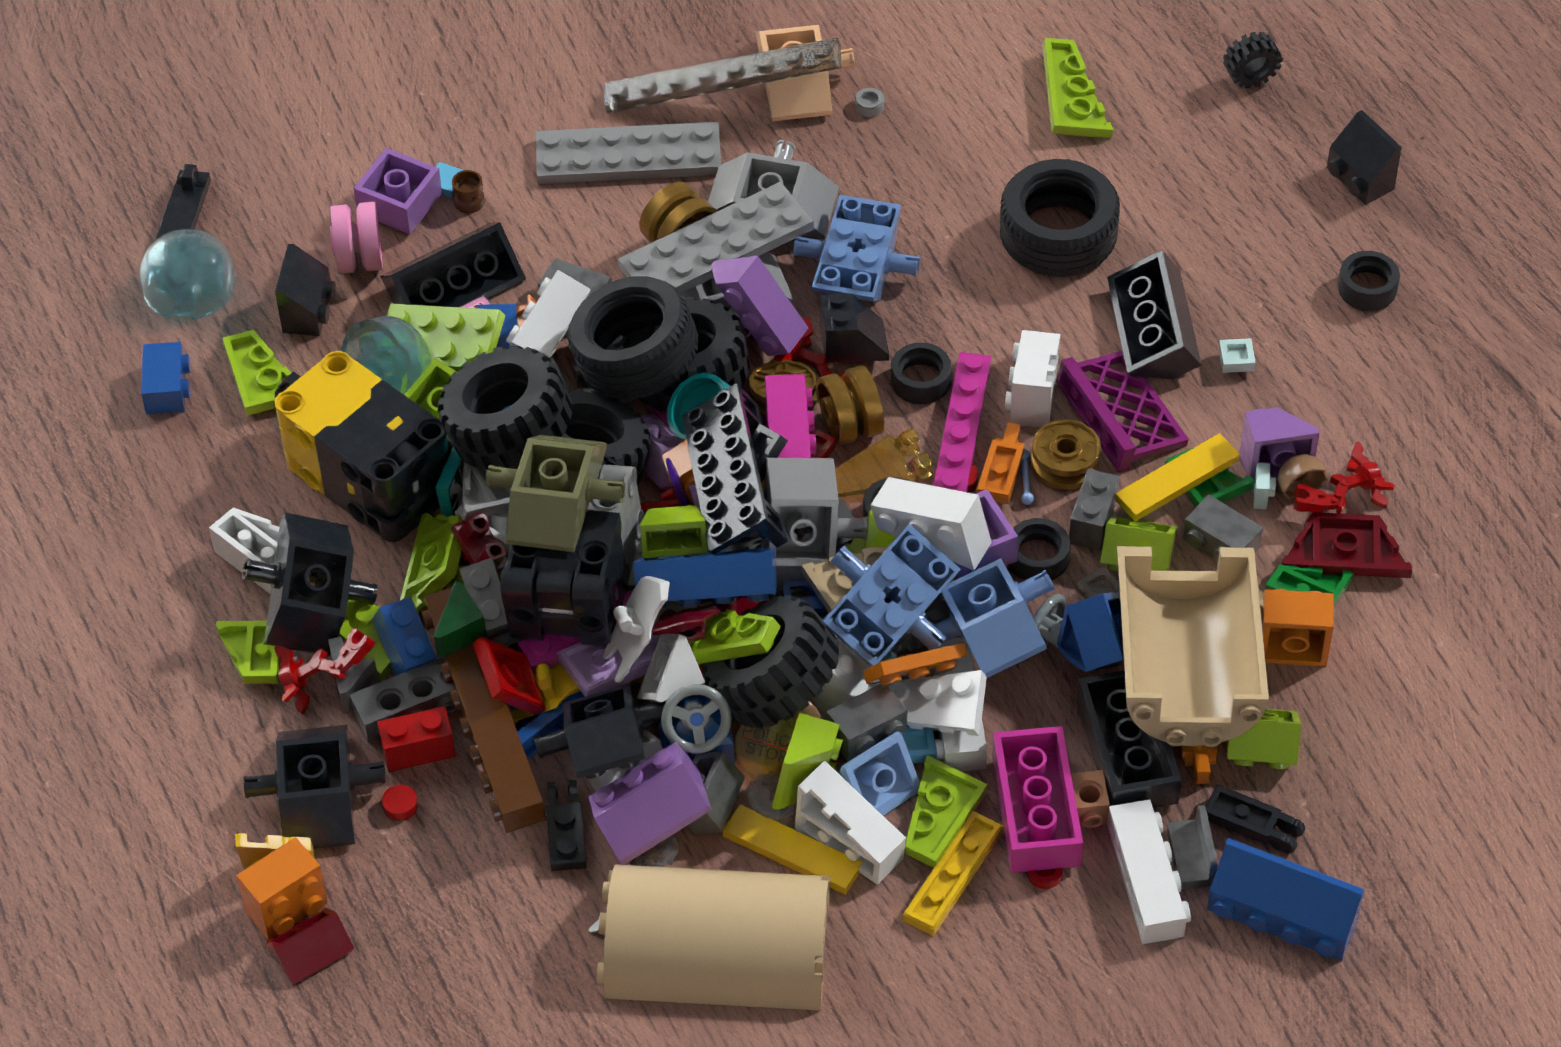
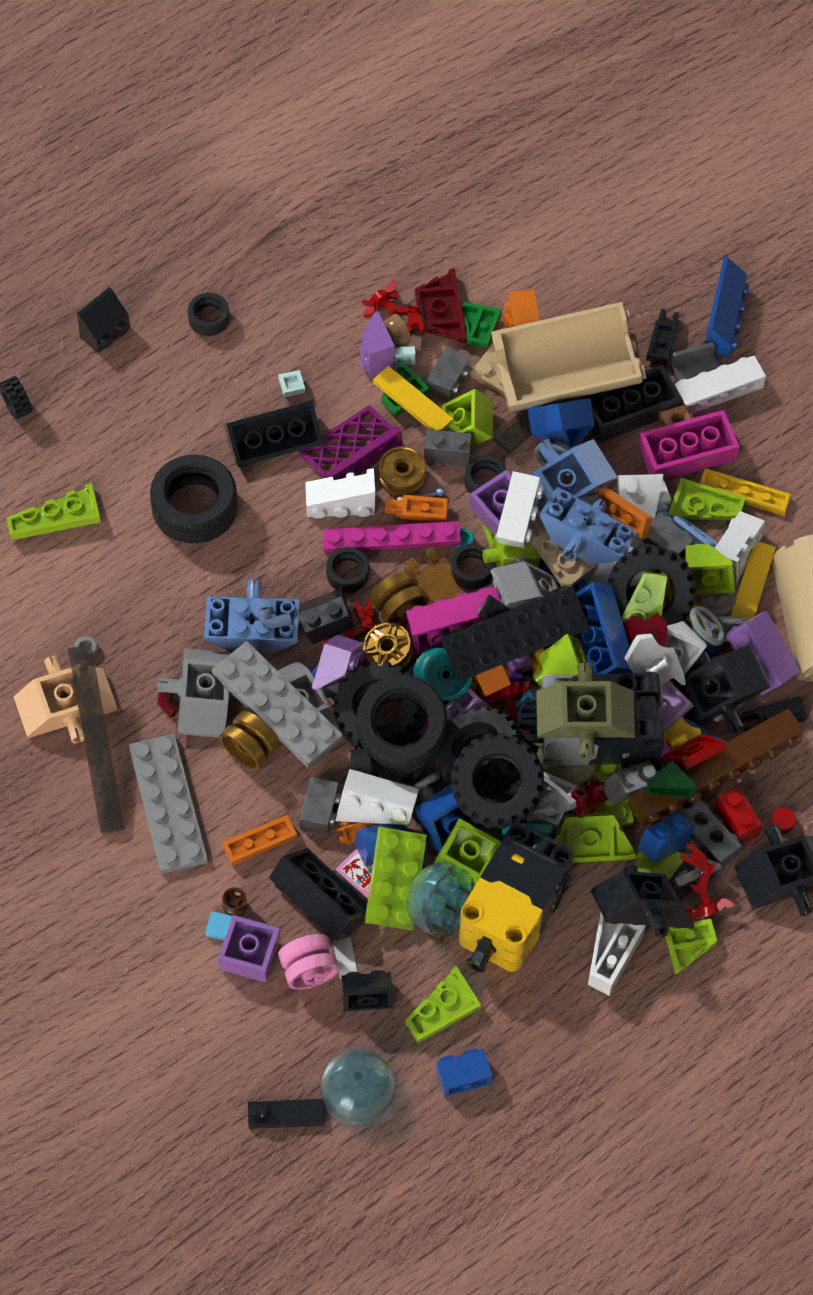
camera: 105 degrees left, 10 degrees up
(363, 296) = (345, 956): none -> white sticker
(546, 227) = (259, 840): none -> orange plate
(841, 254) = (271, 620): none -> sand blue arm

